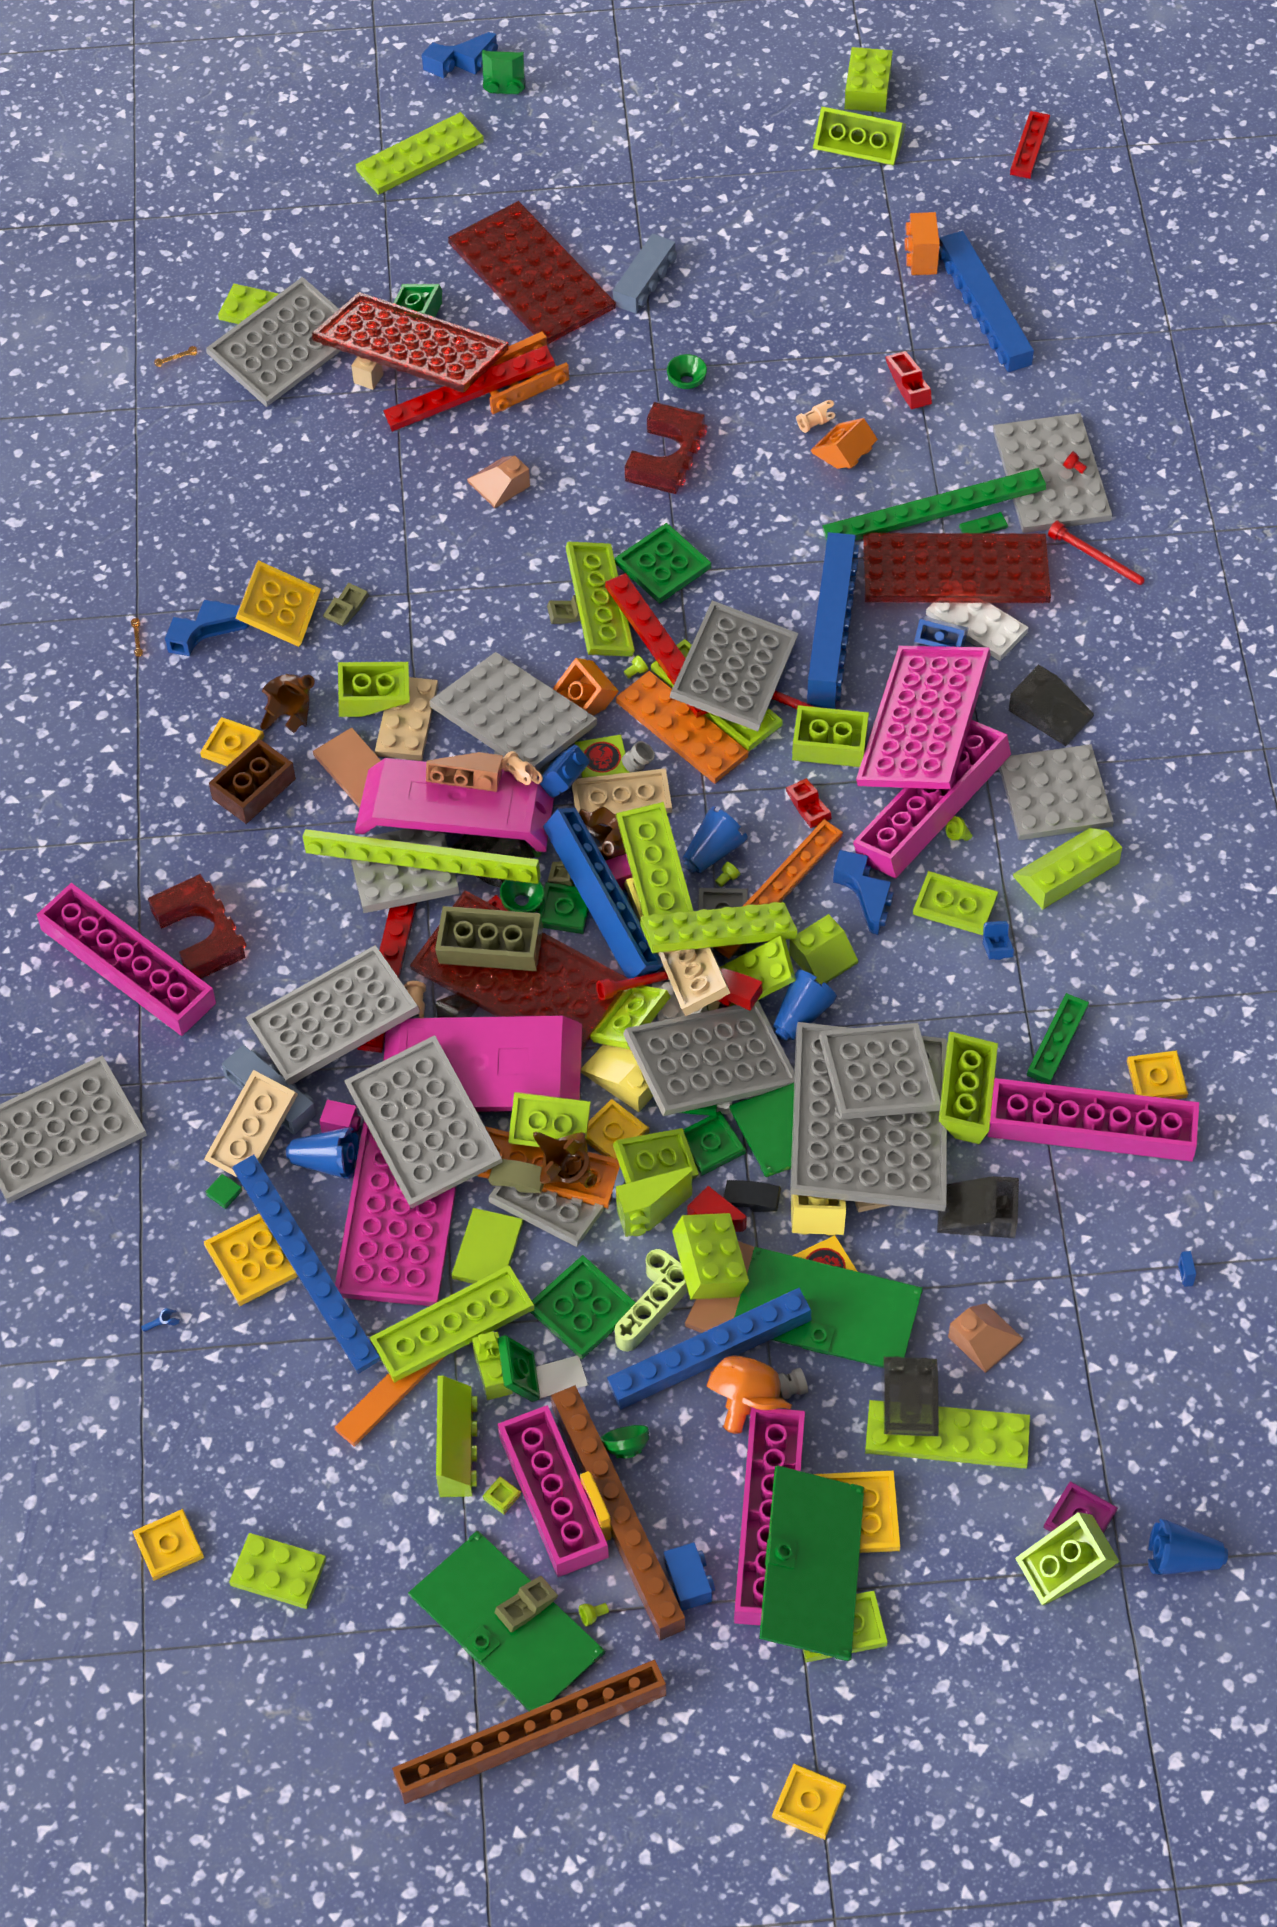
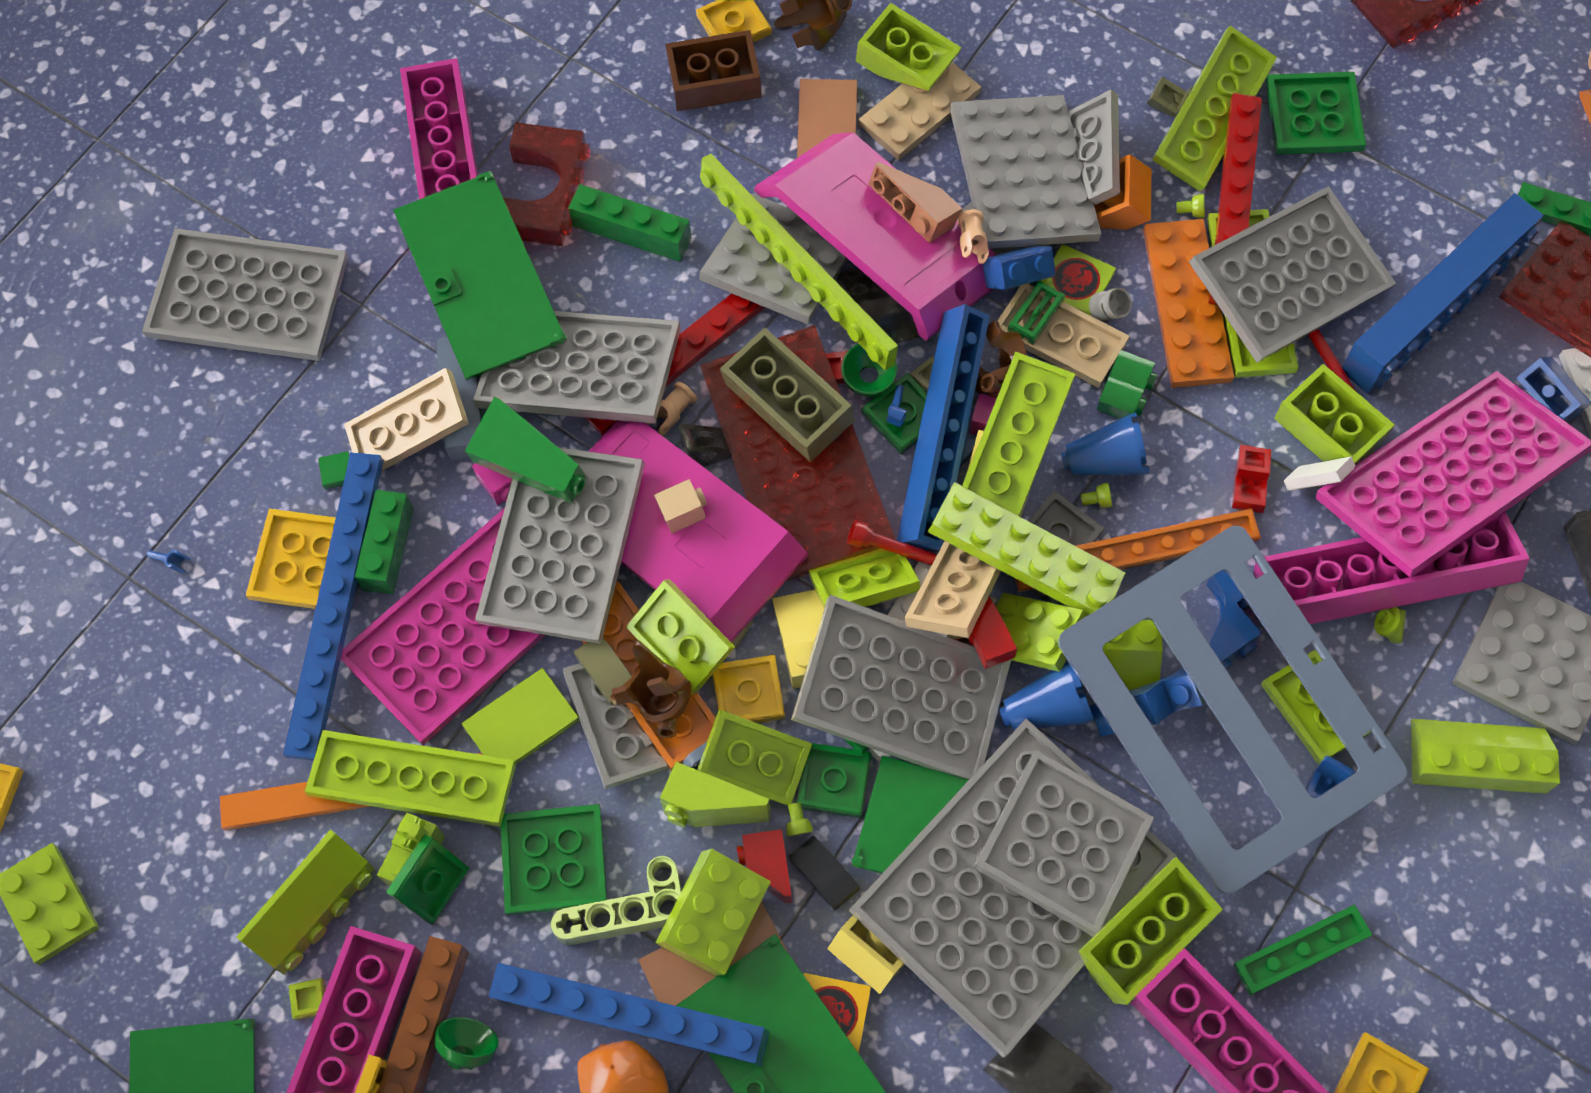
camera: 40 degrees right, 10 degrees up
(218, 1003) = (479, 275): none -> green door
(283, 910) = (630, 223): none -> green brick
(302, 1206) = (384, 542): none -> green brick
(326, 1152) = (454, 504): blue cone -> none
(354, 1083) = (521, 452): none -> green slope
(483, 1045) = (681, 505): none -> tan brick
(549, 667) = (1097, 139): none -> light grey wing
(560, 1376) = (473, 916): white sticker -> none
(562, 909) = (896, 414): none -> blue hand
(595, 773) = (1025, 330): none -> green tile
(689, 799) = (1127, 385): none -> green brick
(712, 1180) = (798, 824): none -> lime piece
(822, 898) = (1301, 815): none -> sand blue door
(848, 770) = (1319, 473): none -> white tile
(862, 962) = (1158, 700): none -> blue arch

